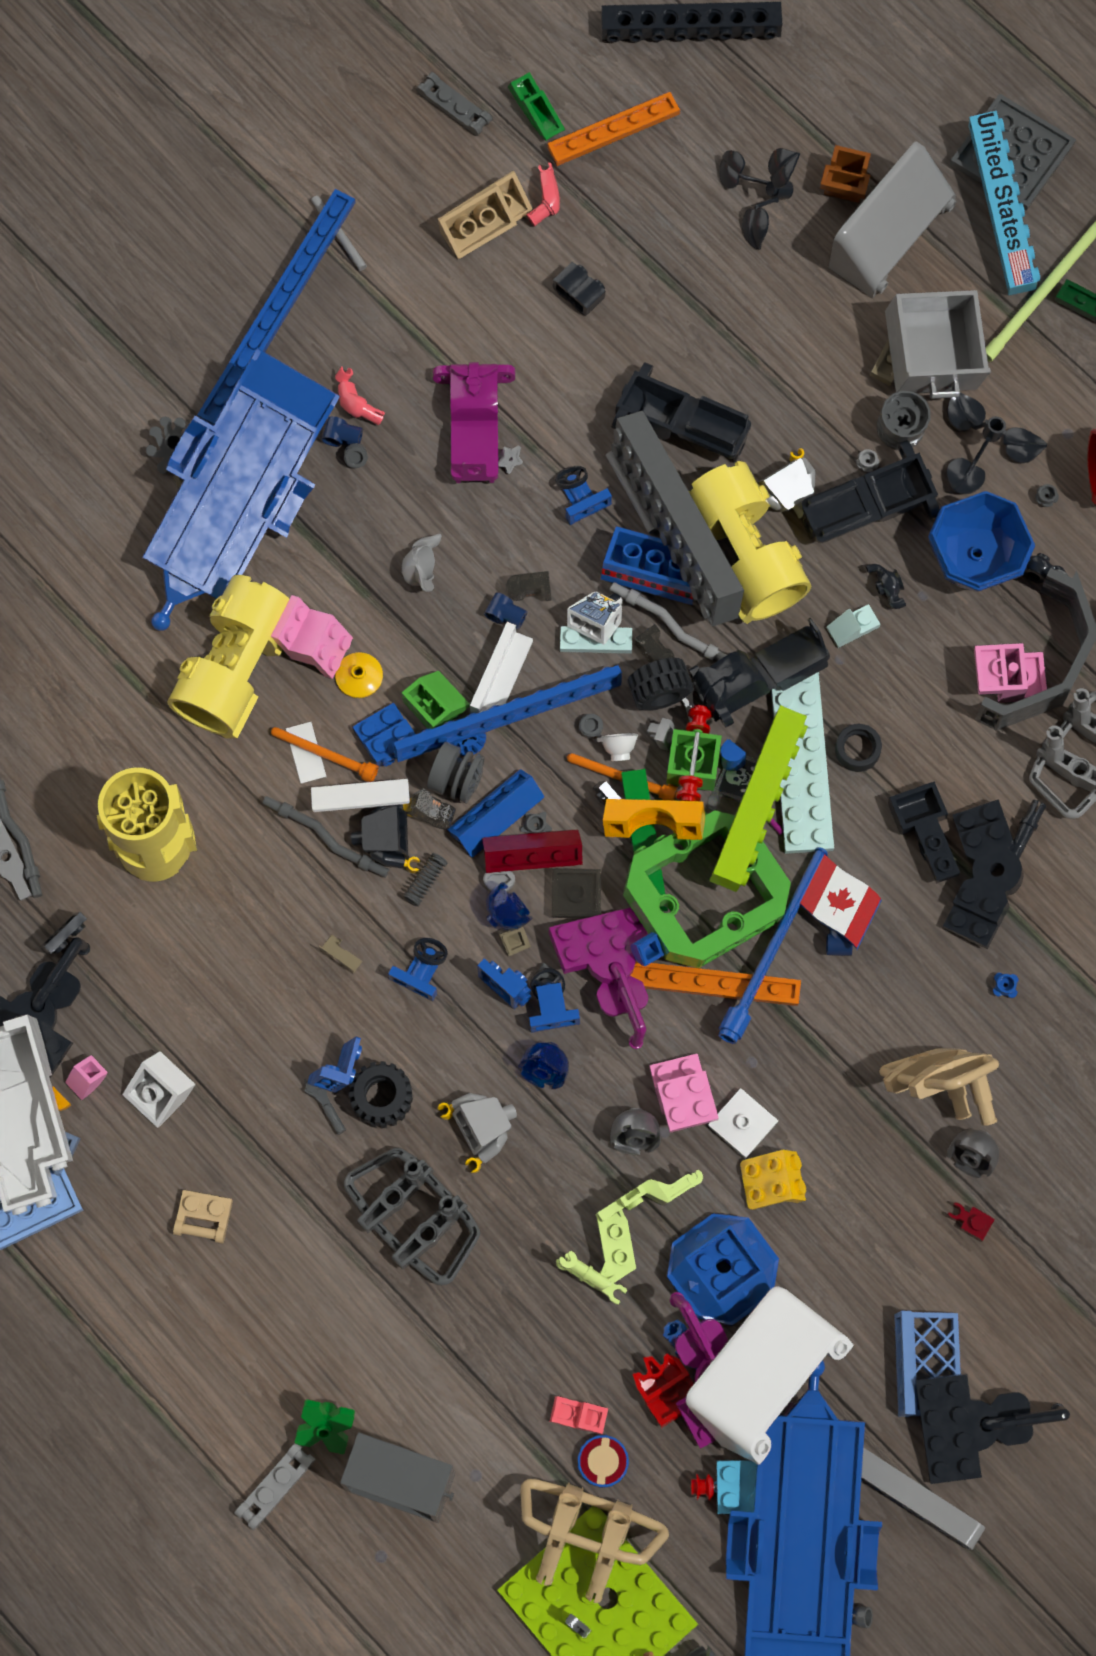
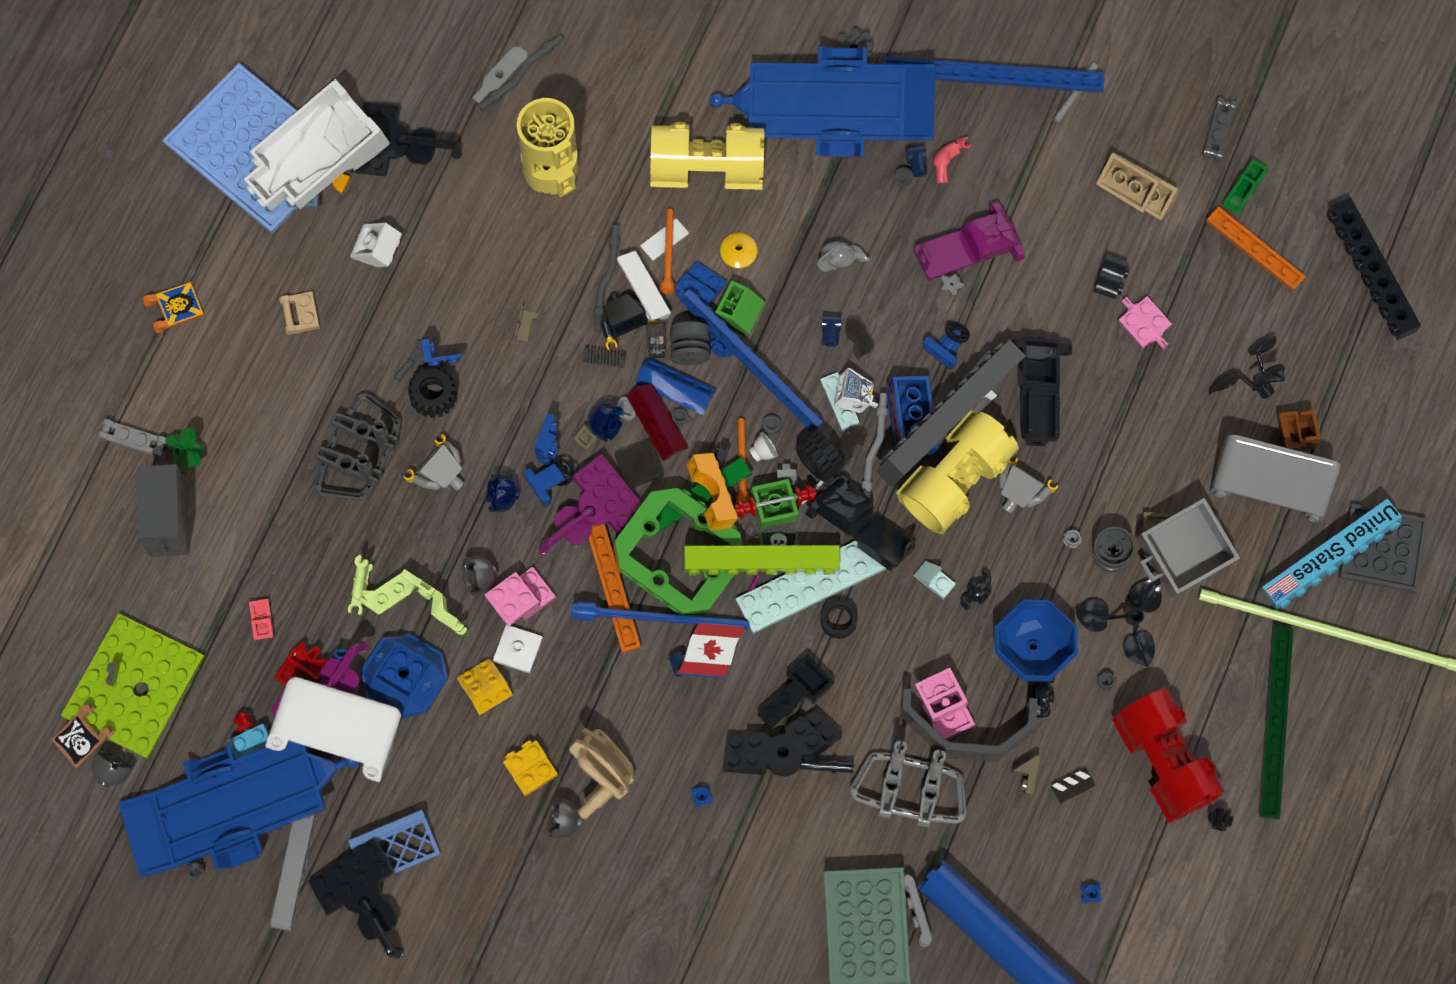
camera: 65 degrees right, 0 degrees up
(72, 927) = (451, 133): black plate -> none
(86, 1077) = (364, 194): bright pink brick -> none
(123, 1363) = (176, 304): none -> flag
(312, 637) = (746, 203): bright pink bracket -> none
(421, 969) = (537, 383): blue piece -> none
(501, 670) = (784, 345): white panel -> none
(550, 197) = (1177, 224): coral arm -> none
(603, 1461) = (235, 649): tile -> none
(612, 1536) = (177, 669): tan piece -> none
(647, 278) = (1145, 322): none -> bright pink plate
(647, 949) = (613, 527): blue brick -> none
(732, 756) = (789, 530): blue brick -> none
(871, 498) = (1038, 550): black piece -> none
(894, 1166) = (529, 767): none -> yellow plate
(974, 1222) = (512, 841): dark red plate -> none

